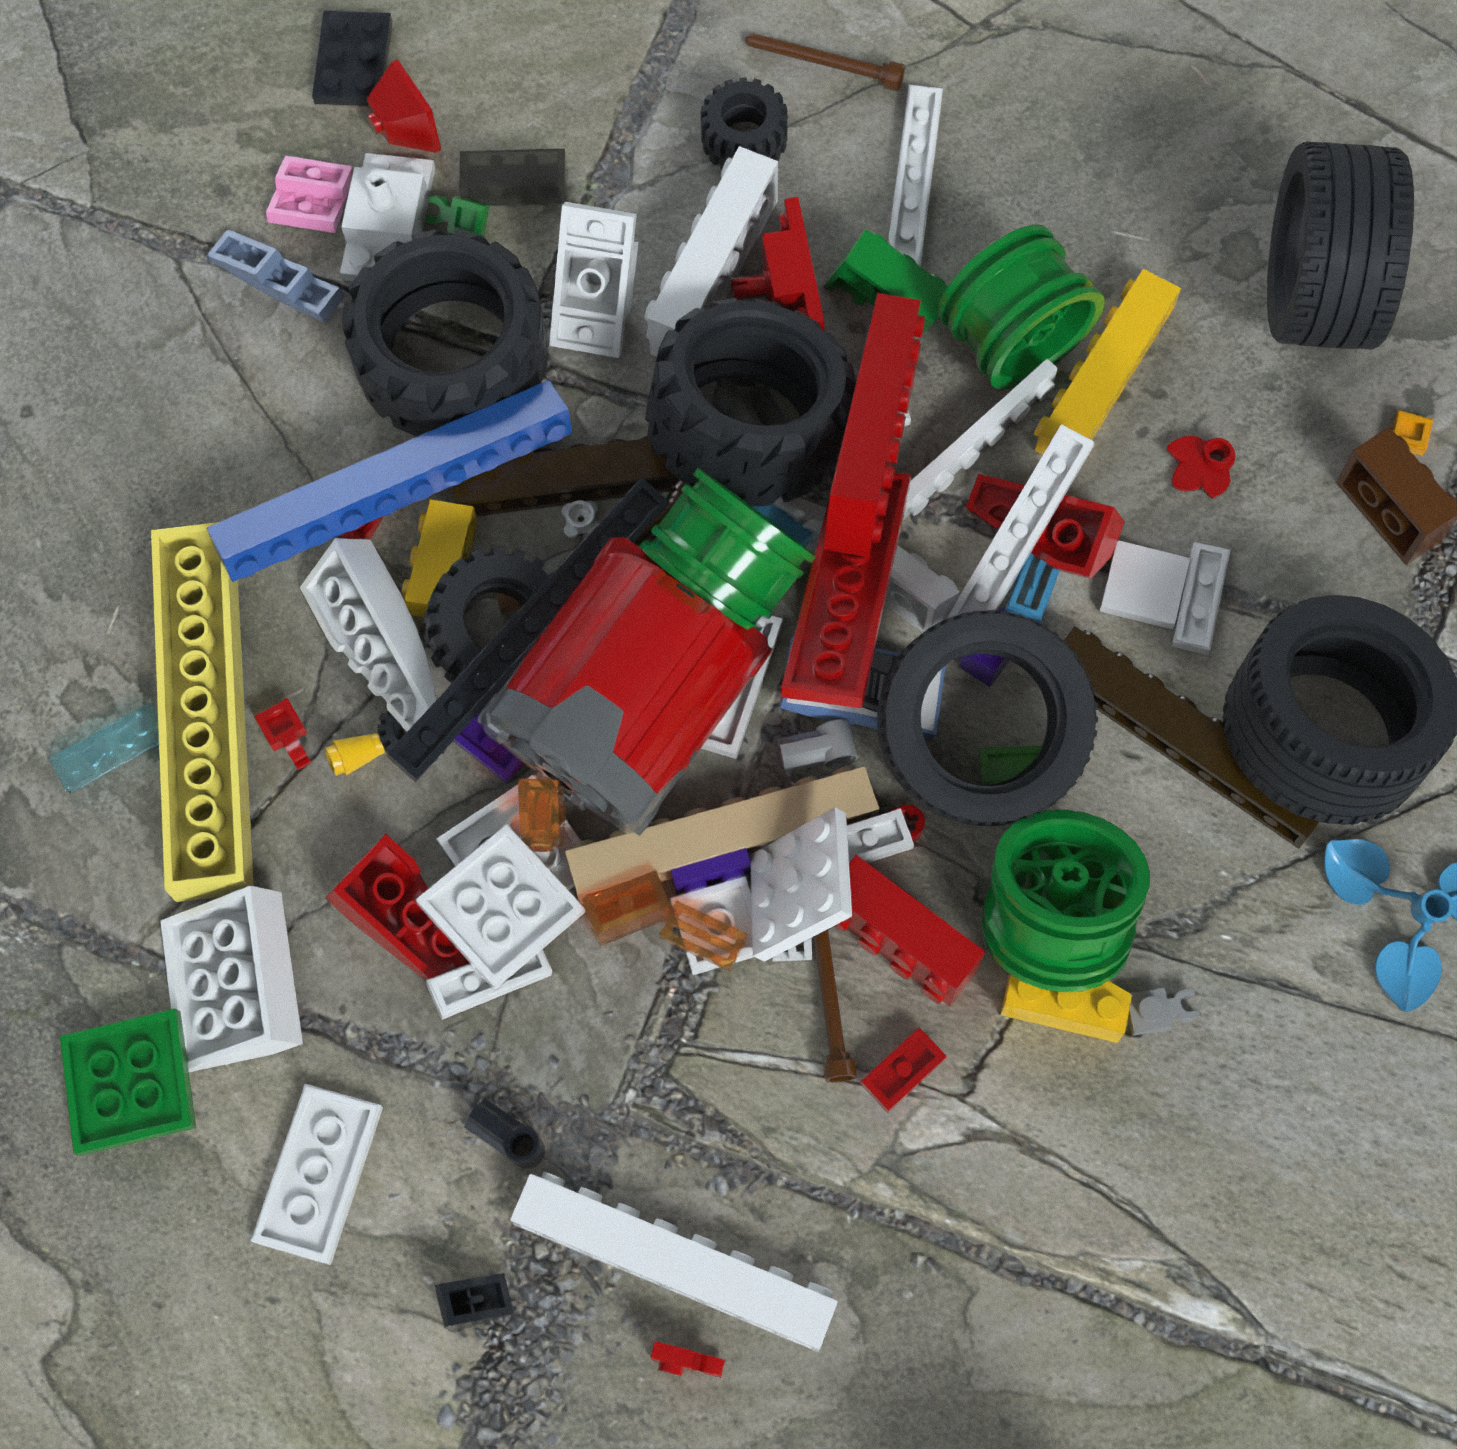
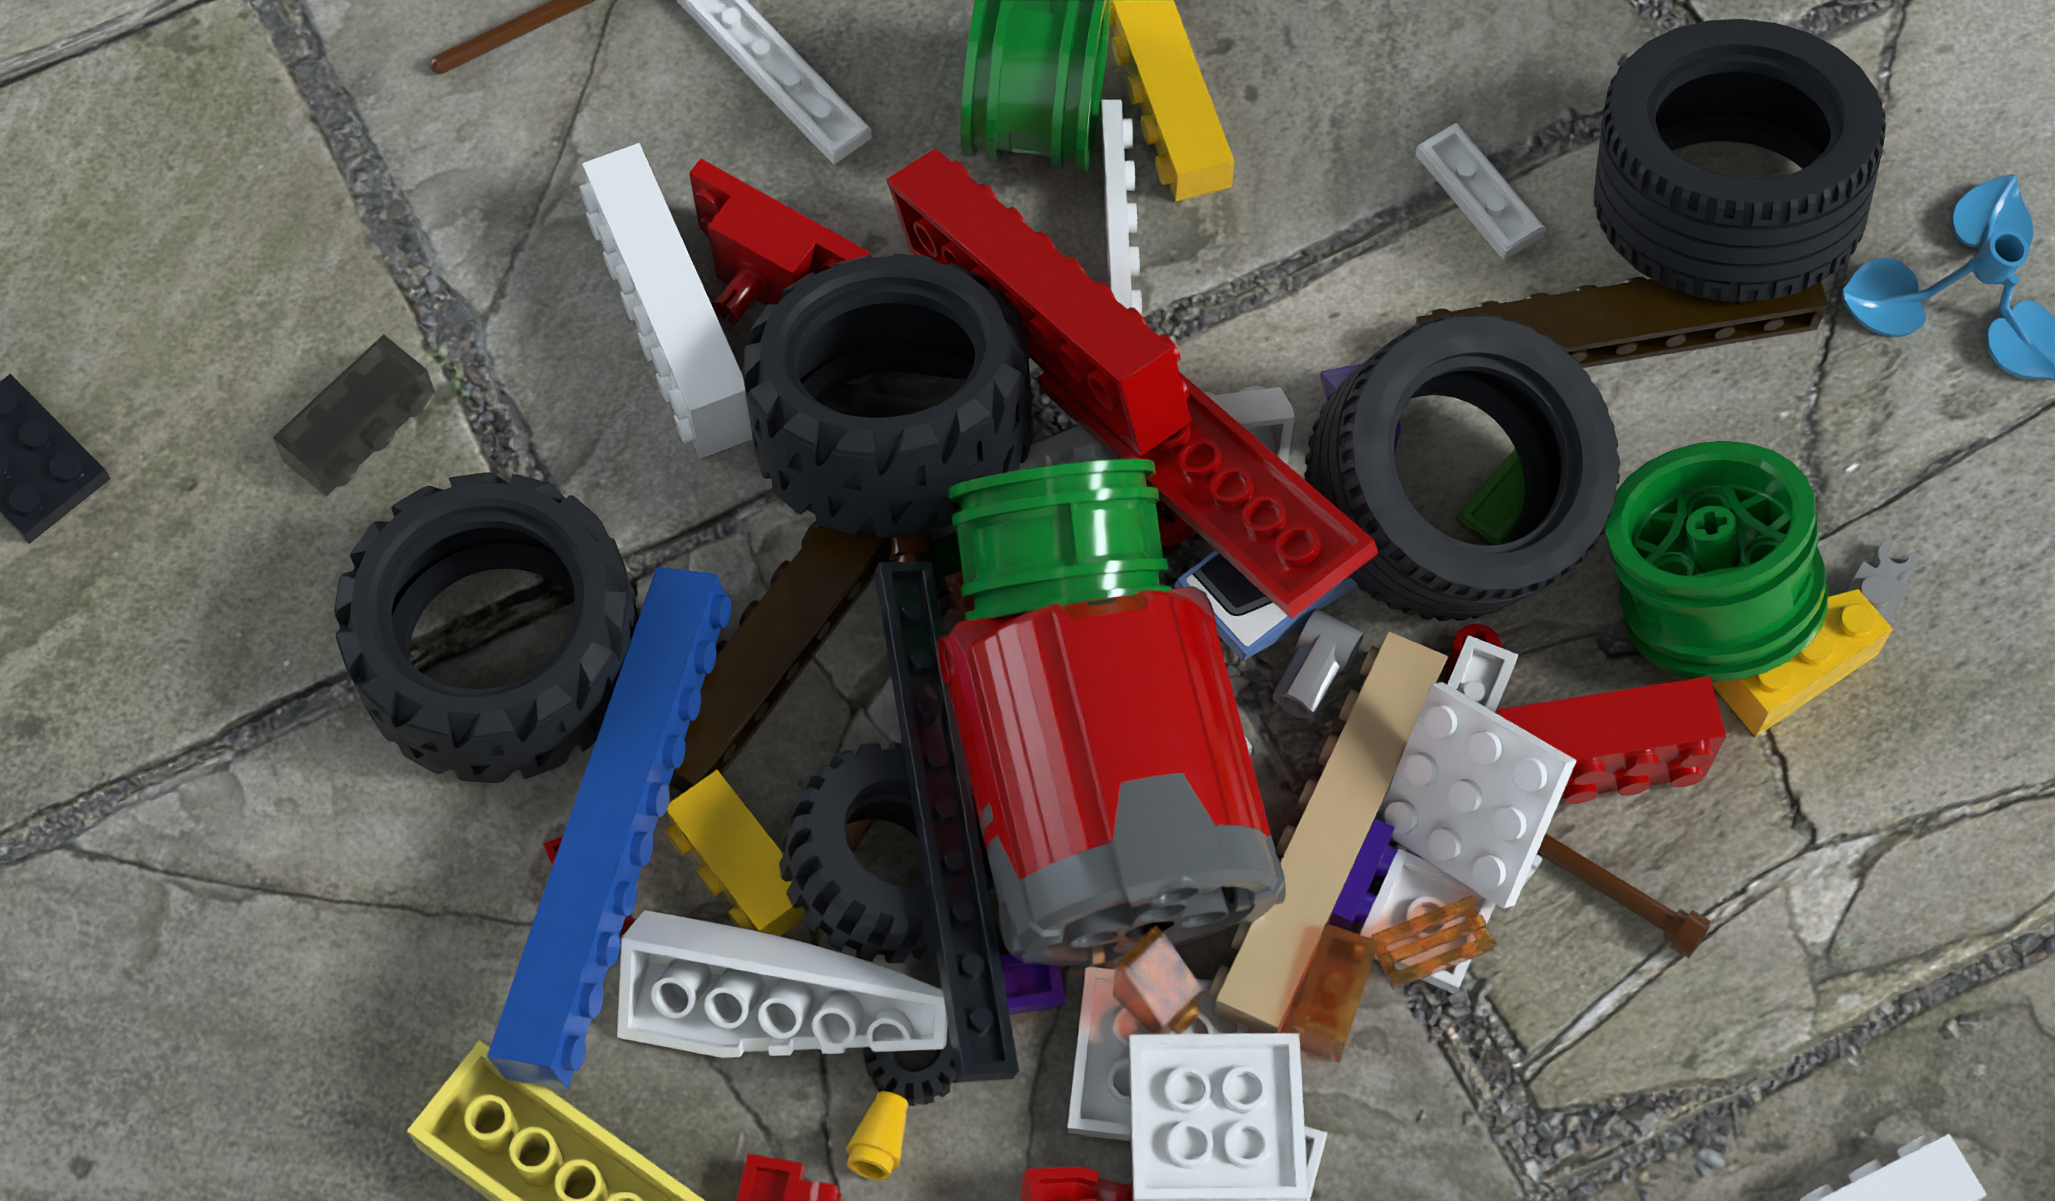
camera: 50 degrees left, 5 degrees down
(275, 276) = (205, 754): sand blue slope -> none
(310, 194) = (141, 637): bright pink slope -> none
(383, 206) = (259, 581): white brick -> none
(402, 112) = (158, 454): red slope -> none
(461, 214) = (349, 501): green plate -> none
(577, 509) = (828, 665): white plate -> none
(593, 279) = (579, 424): white brick -> none
(743, 103) = (529, 119): black tyre -> none
(876, 267) = (848, 165): green wedge -> none
(903, 1070) = (1742, 872): red plate -> none
(1025, 523) = (1268, 272): white plate -> none
(1025, 609) = (1342, 353): dark azure tile -> none
(1077, 536) = (1284, 249): red wedge -> none
(1145, 584) = (1419, 226): white tile -> none
(1196, 466) = (1338, 76): red plate -> none

